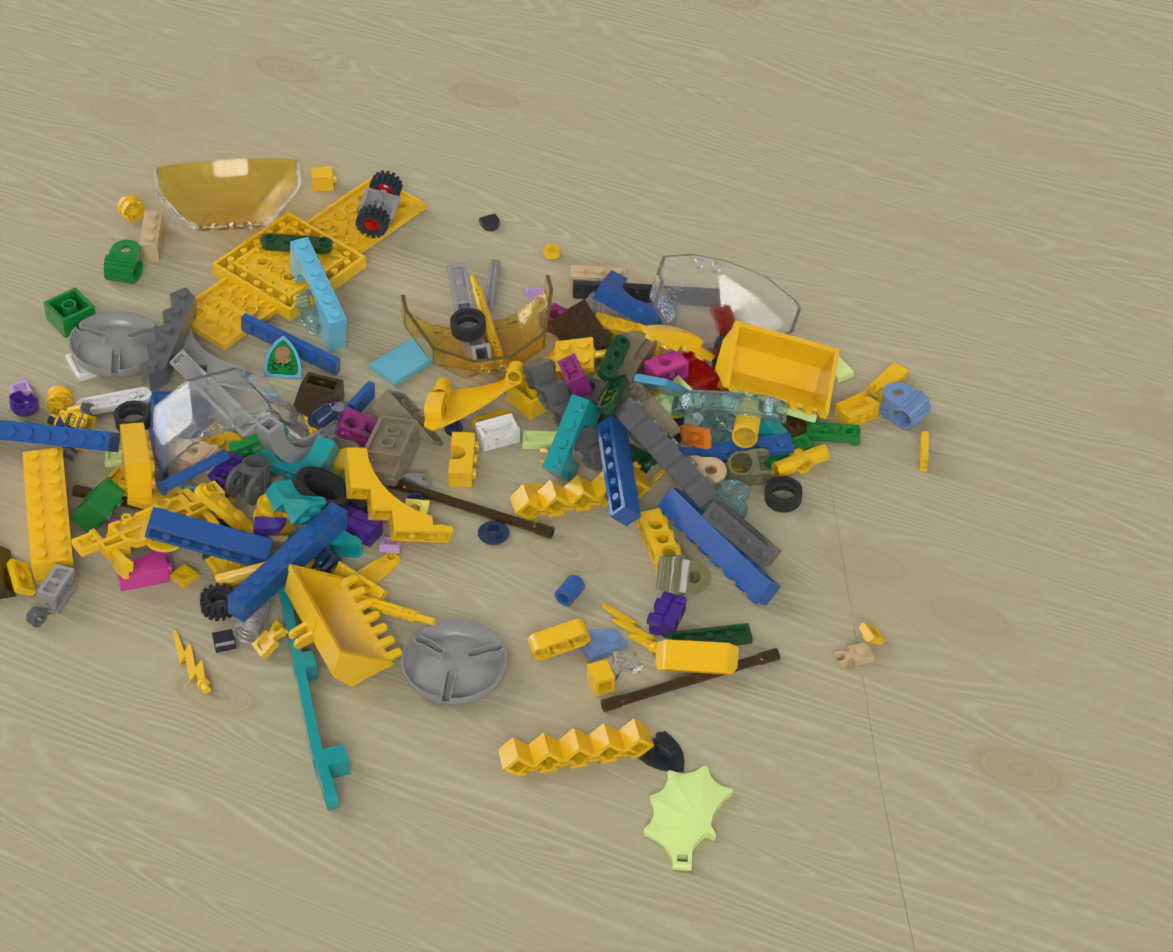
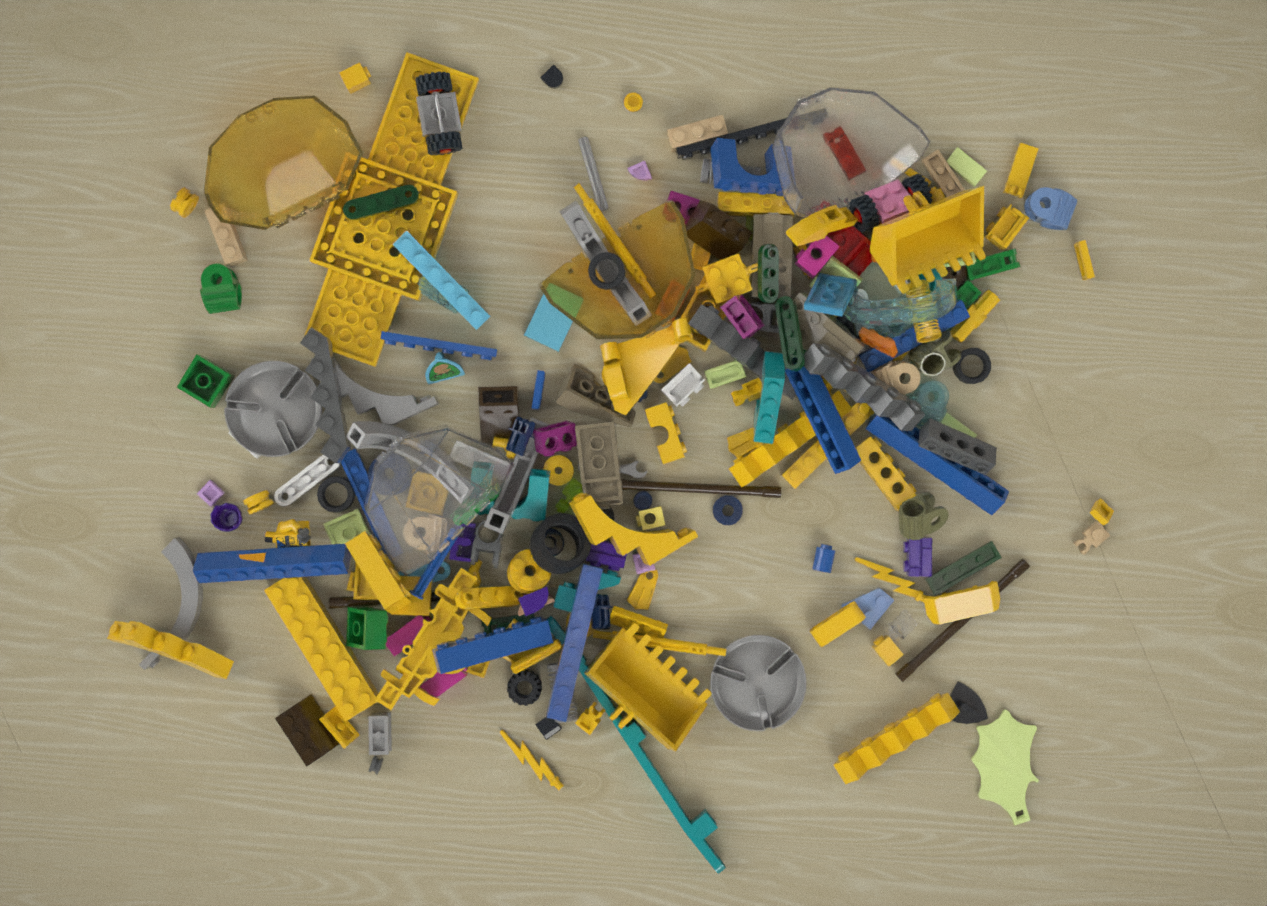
camera: 20 degrees left, 45 degrees up
(298, 507) = (557, 584): teal arch -> none
(601, 518) = (815, 454): none -> yellow plate

